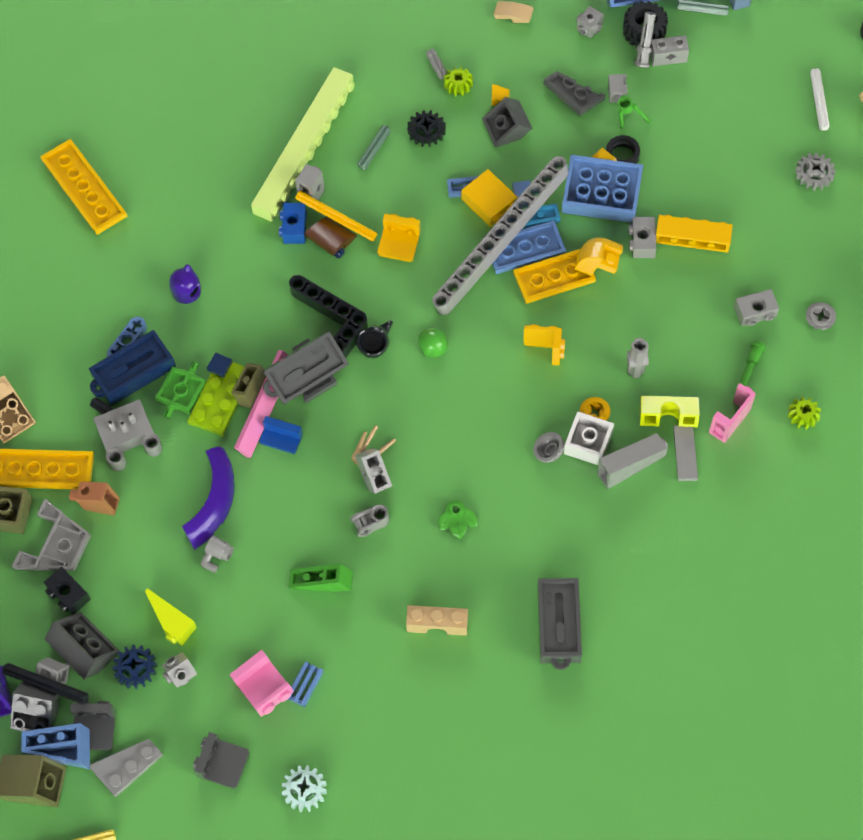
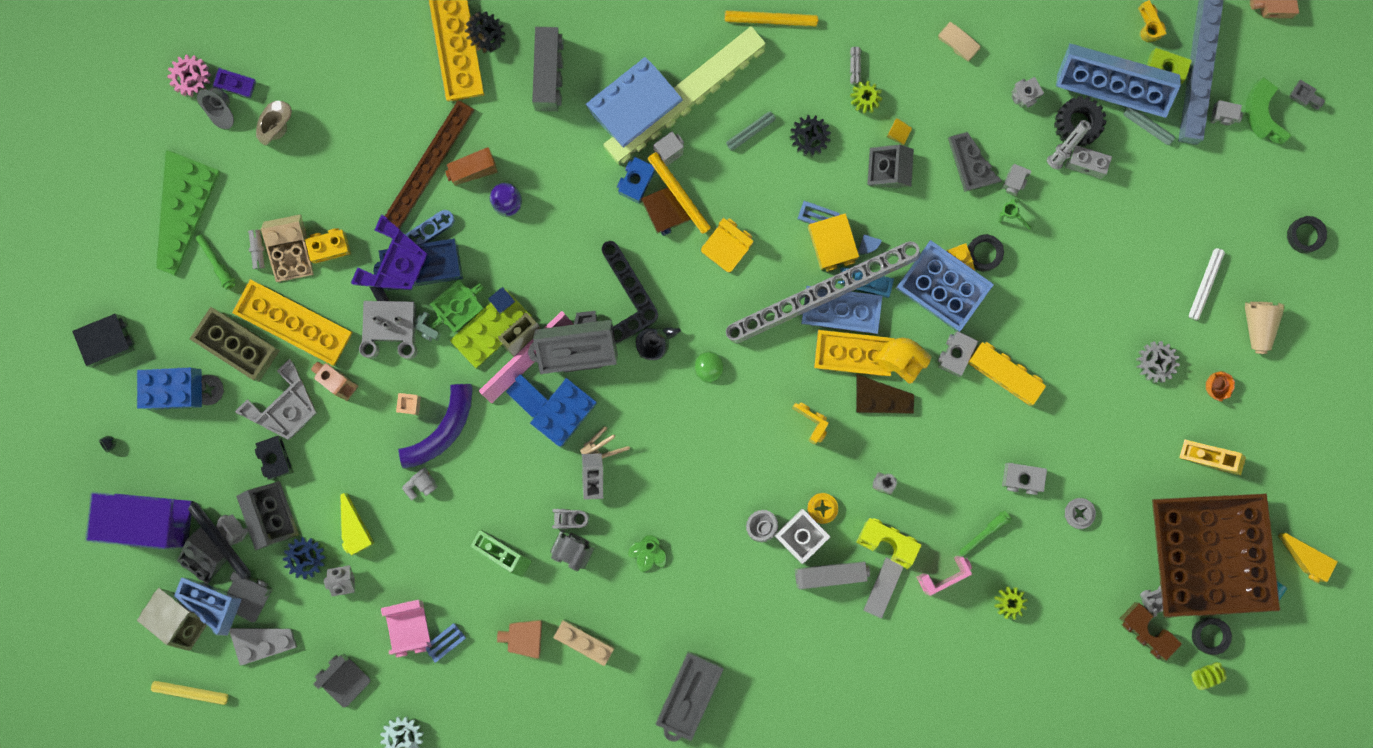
camera: 20 degrees right, 20 degrees up
(39, 391) = (327, 246): none -> yellow brick
(101, 295) = (429, 163): none -> reddish brown tile
(106, 165) = (485, 32): none -> black gear
(113, 369) = (400, 264): none -> dark purple wing
(143, 271) = (471, 167): none -> dark orange slope
(162, 421) = (427, 332): none -> sand green bracket
(173, 486) = (408, 404): none -> light nougat panel
(174, 169) = (547, 67): none -> dark grey brick
(261, 161) = (634, 102): none -> medium blue slope
(320, 433) = (563, 413): none -> blue brick
(347, 59) = (771, 18): none -> yellow axle
(378, 643) = (523, 638): none -> nougat torso
(386, 542) = (572, 550): none -> dark grey brick
(597, 301) = (881, 398): none -> dark brown wing

